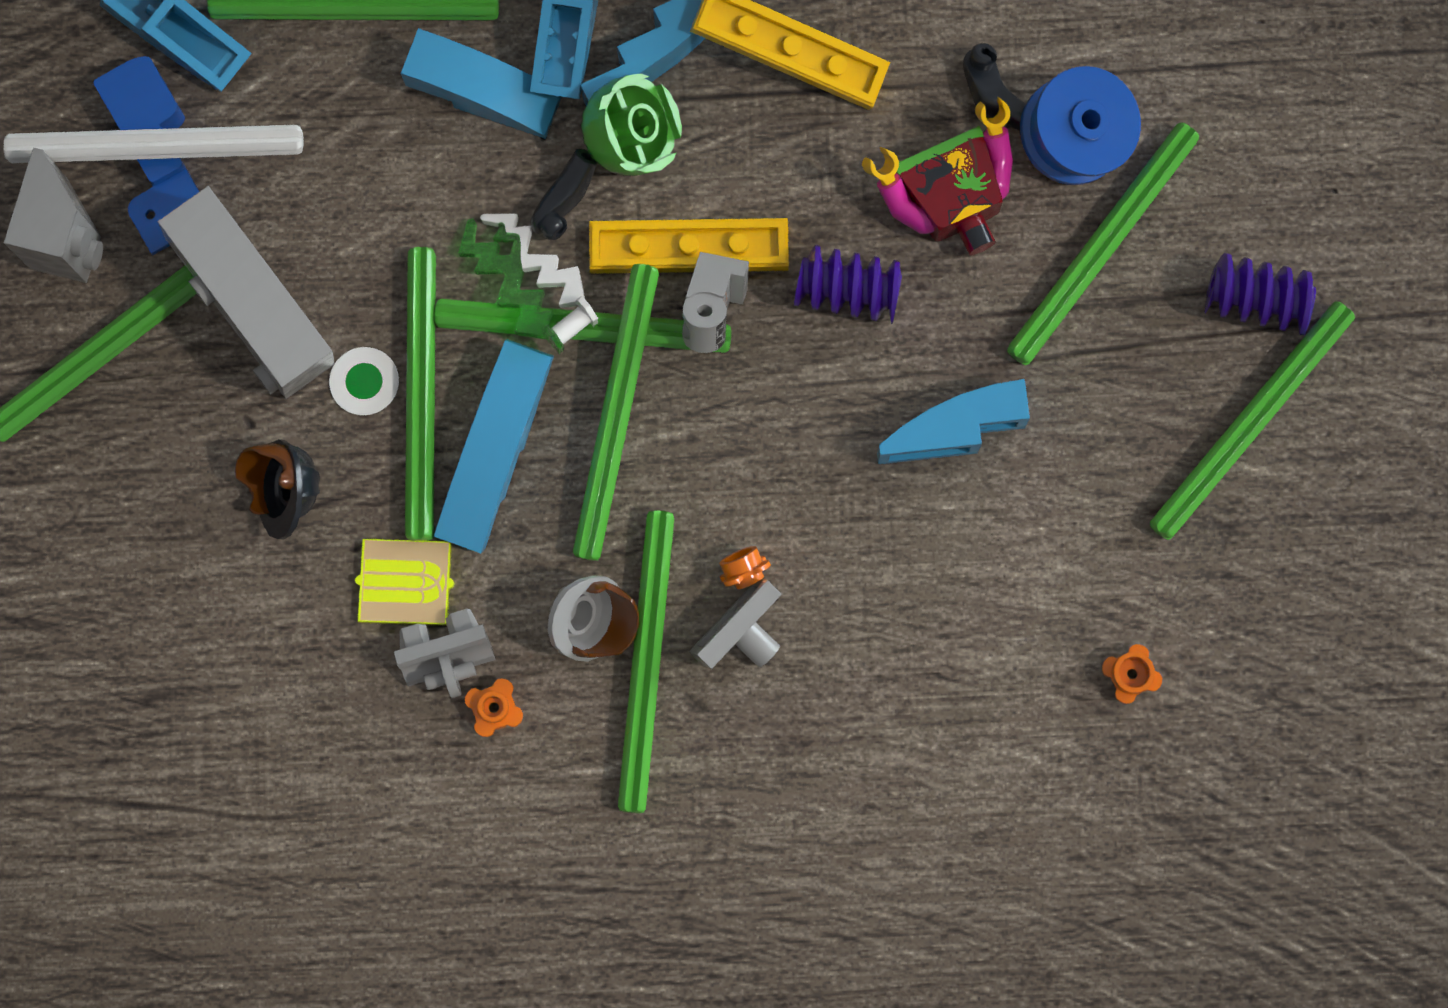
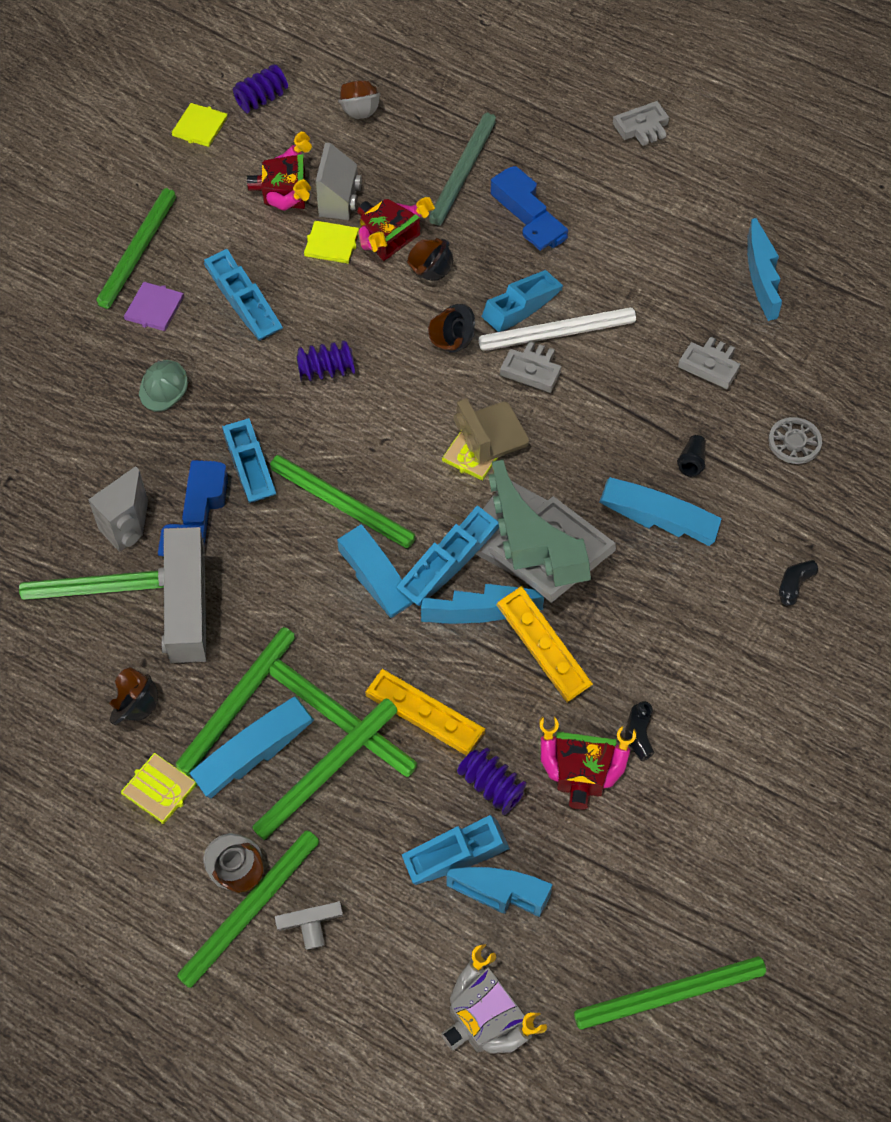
camera: 30 degrees right, 20 degrees down
(156, 143) = (200, 505): white axle -> none
(364, 381) = (214, 678): white sticker -> none
(444, 658) = (149, 837): light grey hips -> none
(507, 713) = (155, 888): orange plate -> none
(530, 321) = (317, 695): piece -> none
(563, 195) = (378, 648): black arm -> none
(631, 126) = (434, 632): bright green cylinder -> none
(712, 287) = (414, 740): light grey leg -> none
(743, 568) = (334, 890): orange plate -> none
(862, 412) = (455, 850): none -> dark azure slope
(1046, 596) = (486, 1011): none -> torso
(1080, 125) = (672, 774): blue wheel -> none
(1103, 243) = (646, 845): bright green axle -> none
(1146, 676) = (515, 1083): orange plate -> none
(1261, 292) = (718, 924): dark purple piece -> none

